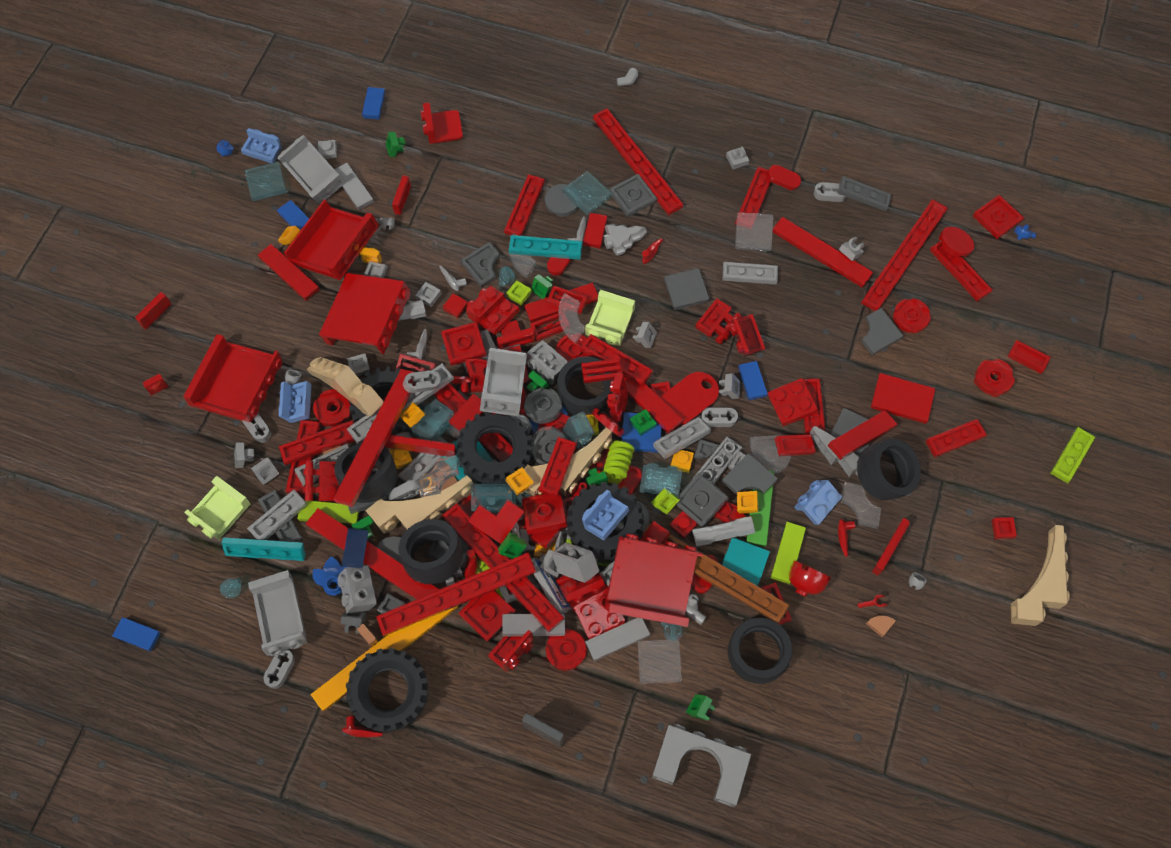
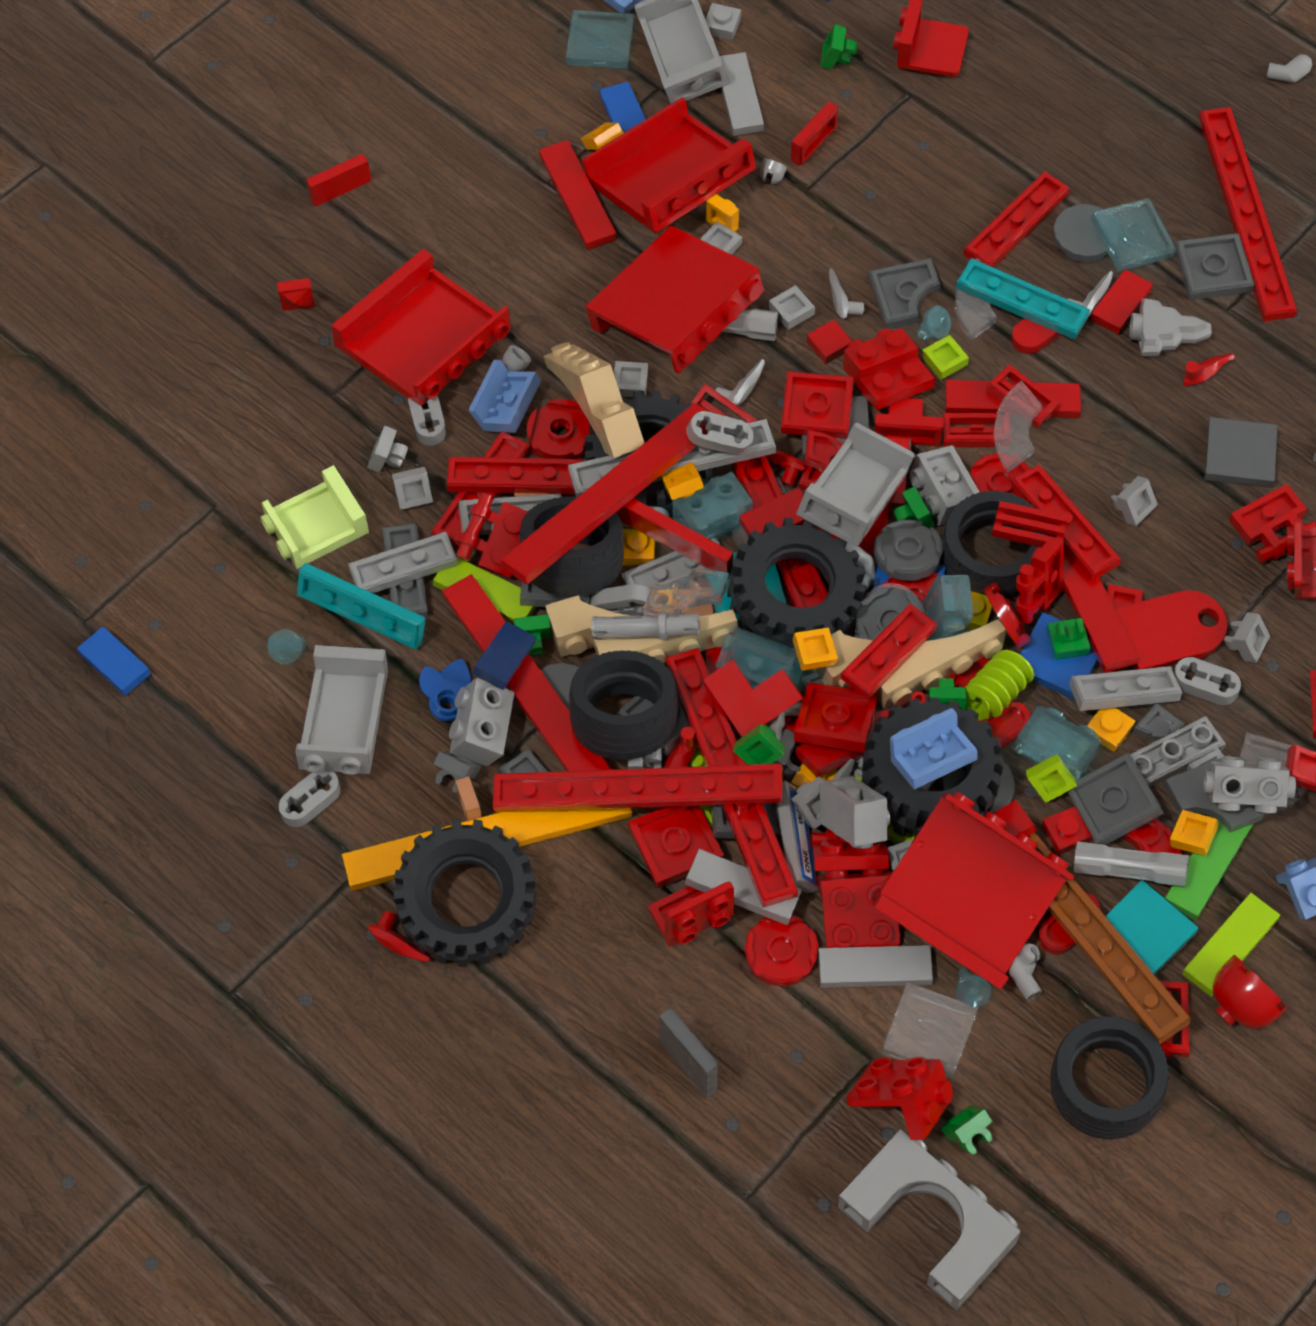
camera: 25 degrees right, 5 degrees down
(424, 503) = (645, 626): none -> light grey pin
(542, 286) = (989, 359): green tile -> none
(610, 318) = (1087, 452): yellowish green panel -> none
(661, 700) = (912, 1084): none -> red bracket
(752, 380) = (1293, 643): blue tile -> none
(772, 464) = (1259, 784): none -> light grey brick

